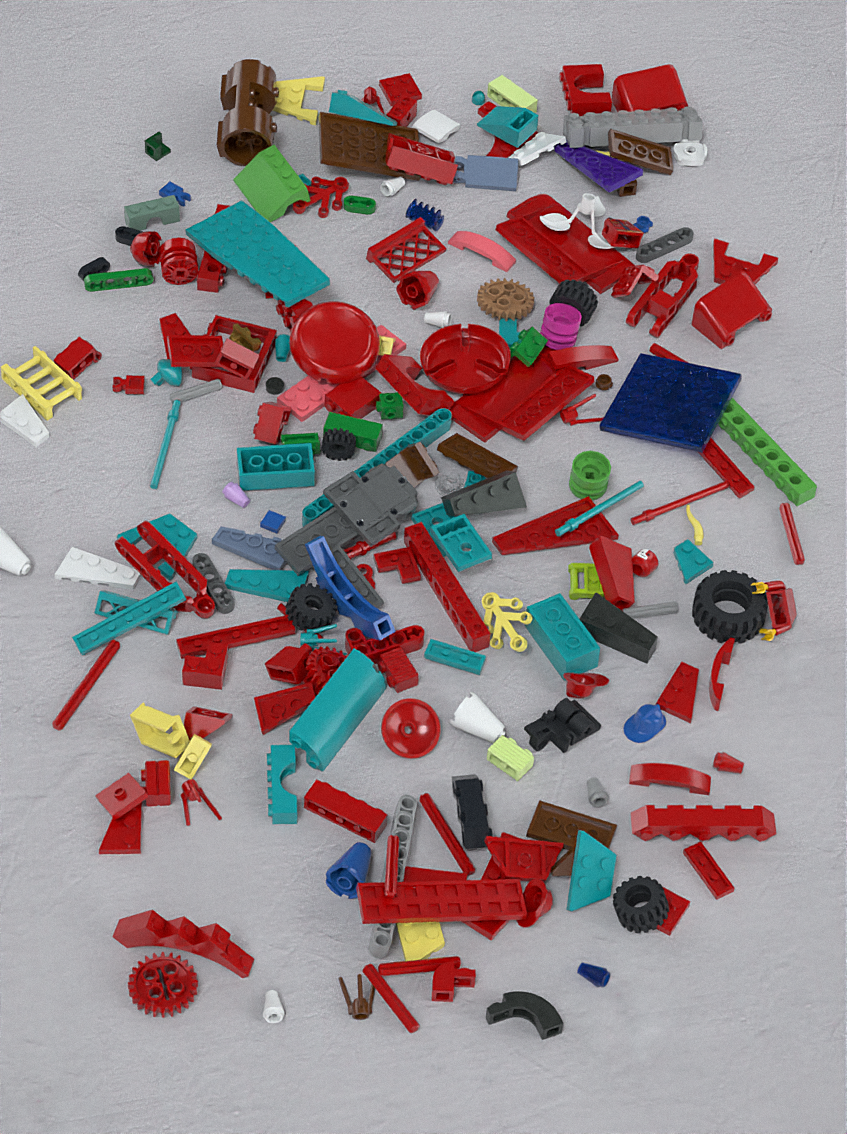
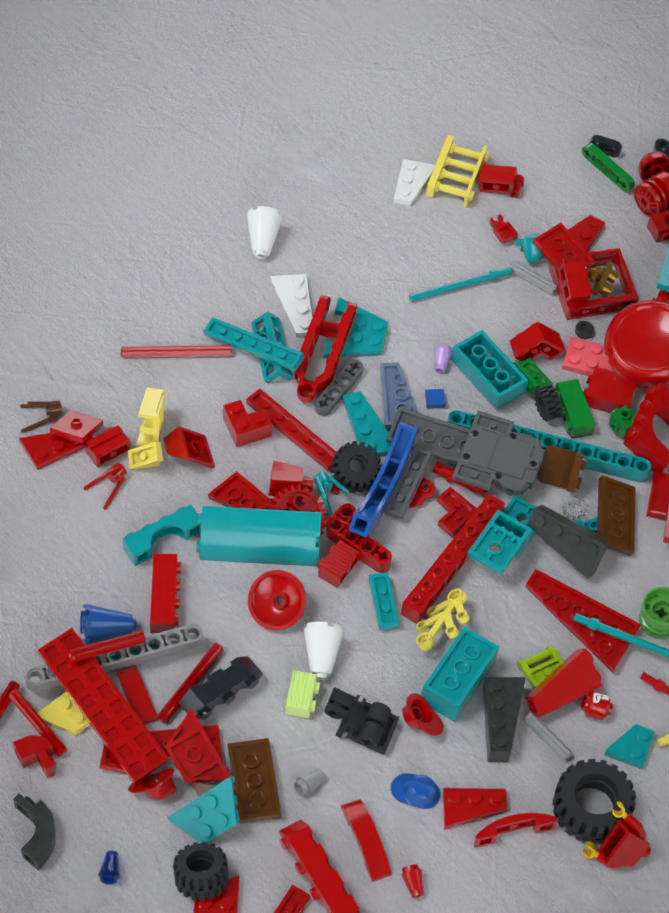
camera: 60 degrees right, 5 degrees up
(83, 810) = (52, 408): none -> reddish brown plant

